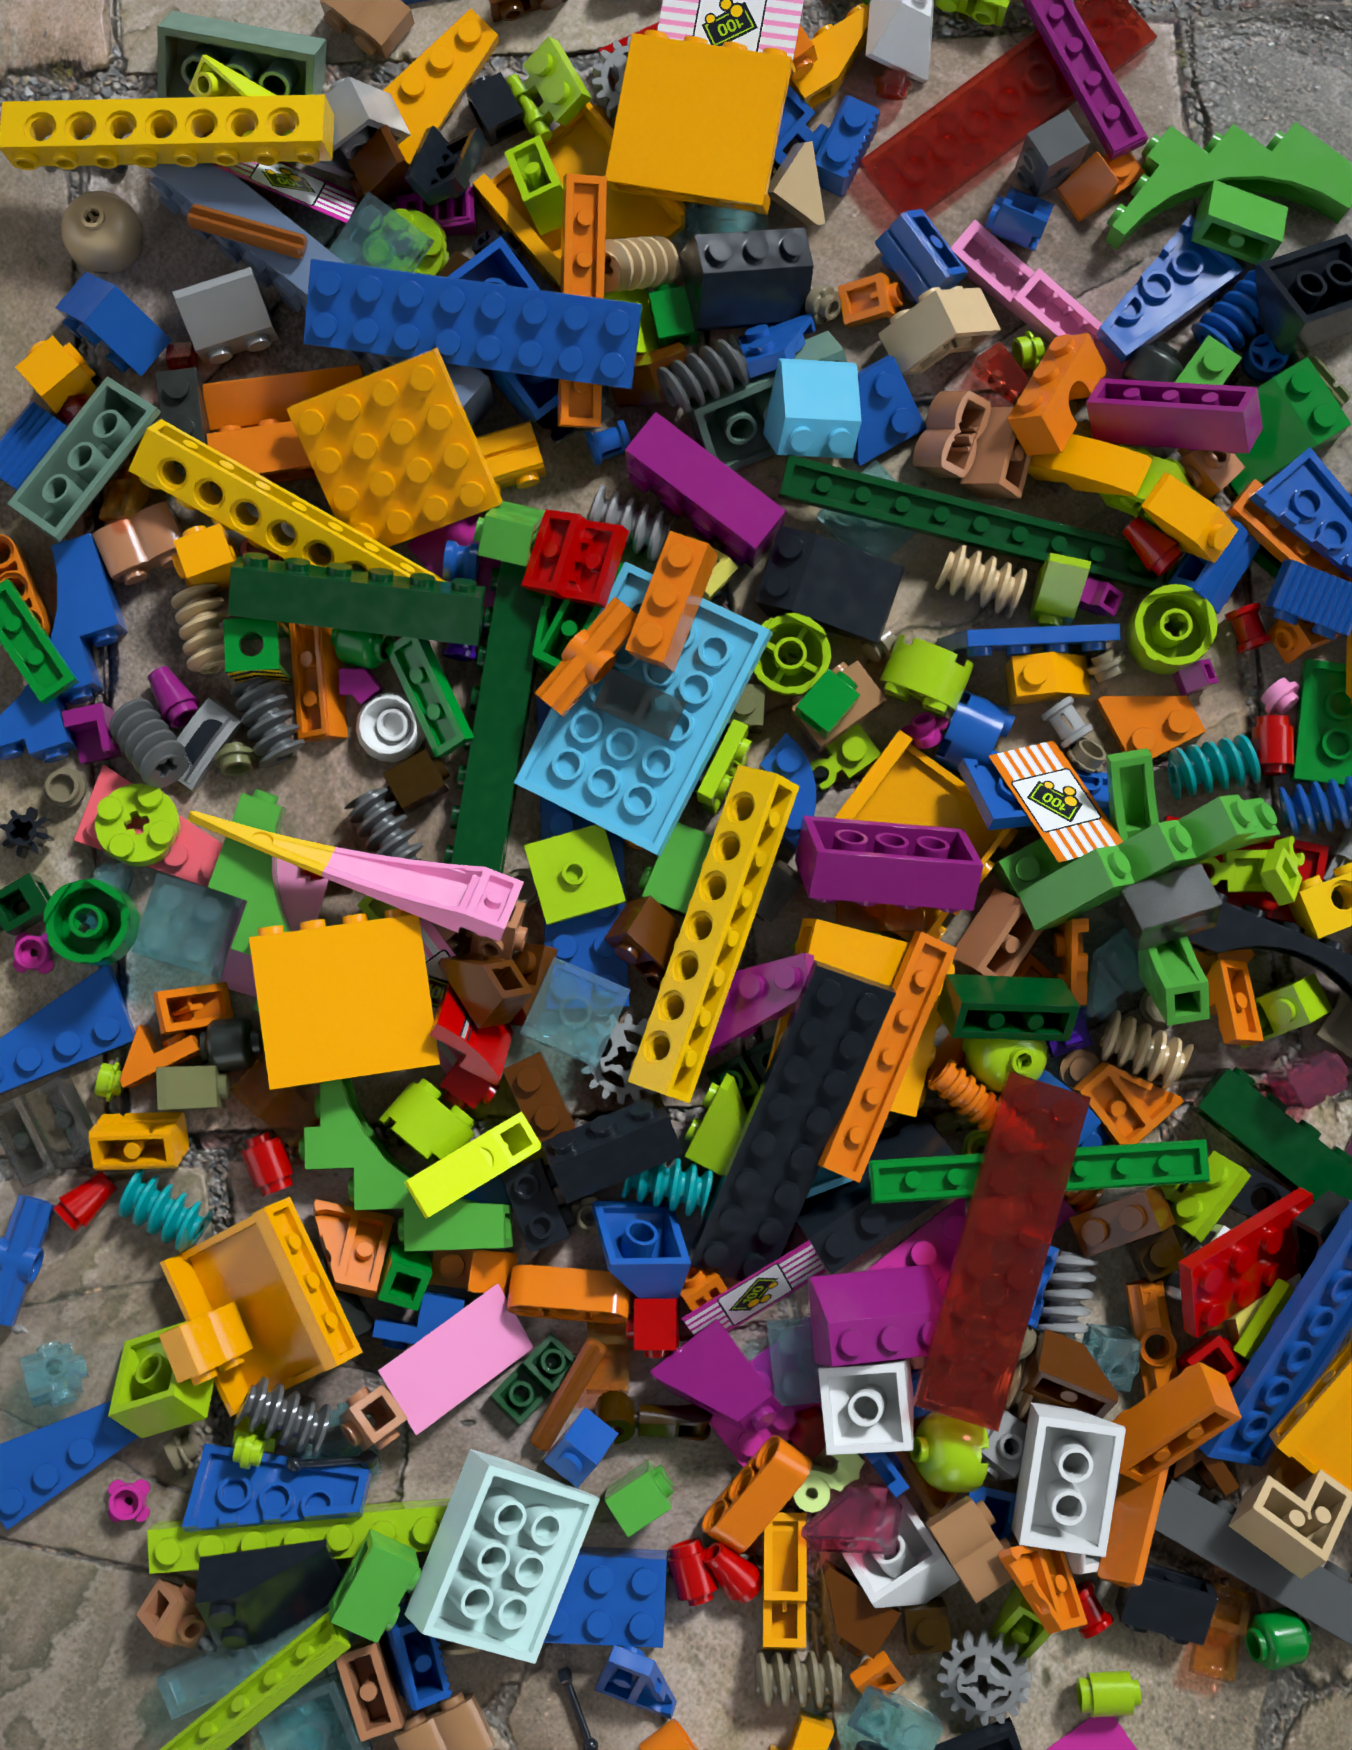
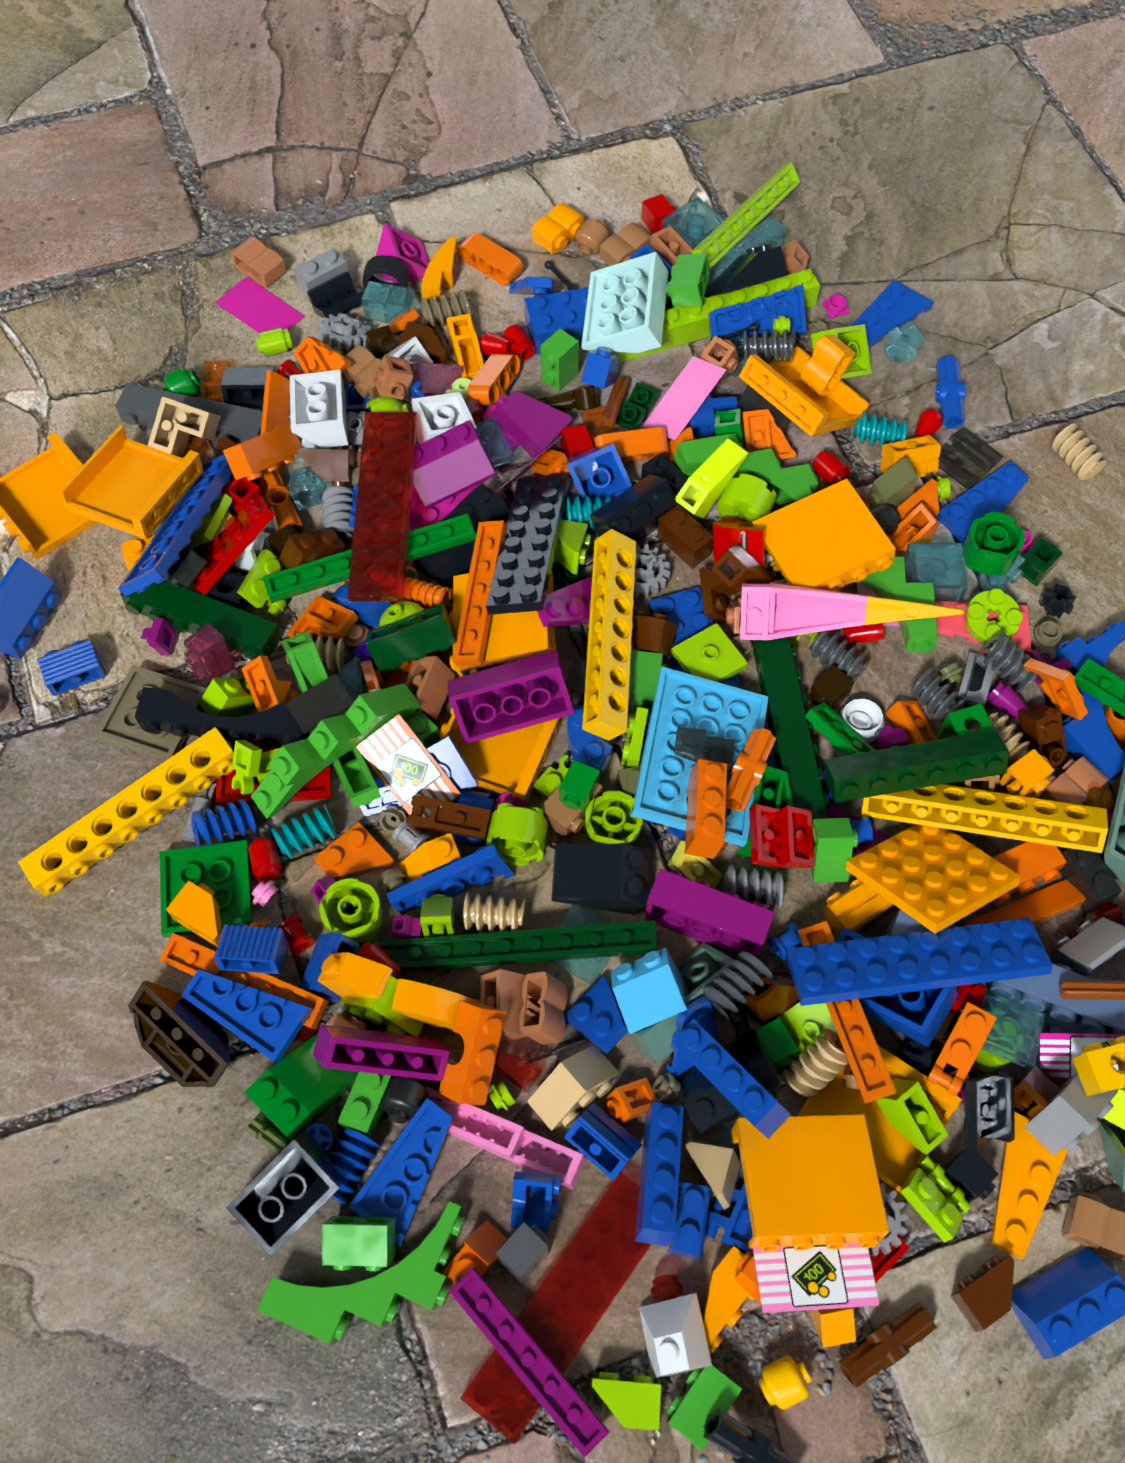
camera: 165 degrees right, 20 degrees down
(100, 667) = (1060, 687): none -> orange wing
(147, 630) = (1045, 732): none -> reddish brown slope
(451, 229) = (962, 1047): none -> orange plate
(575, 1012) = (680, 577): clear light blue plate -> none
(757, 248) = (731, 1079): none -> blue brick
(866, 195) = (659, 1174): none -> blue brick
(935, 1497) = (393, 377): none -> nougat brick
(1015, 717) = (449, 817): none -> reddish brown plate

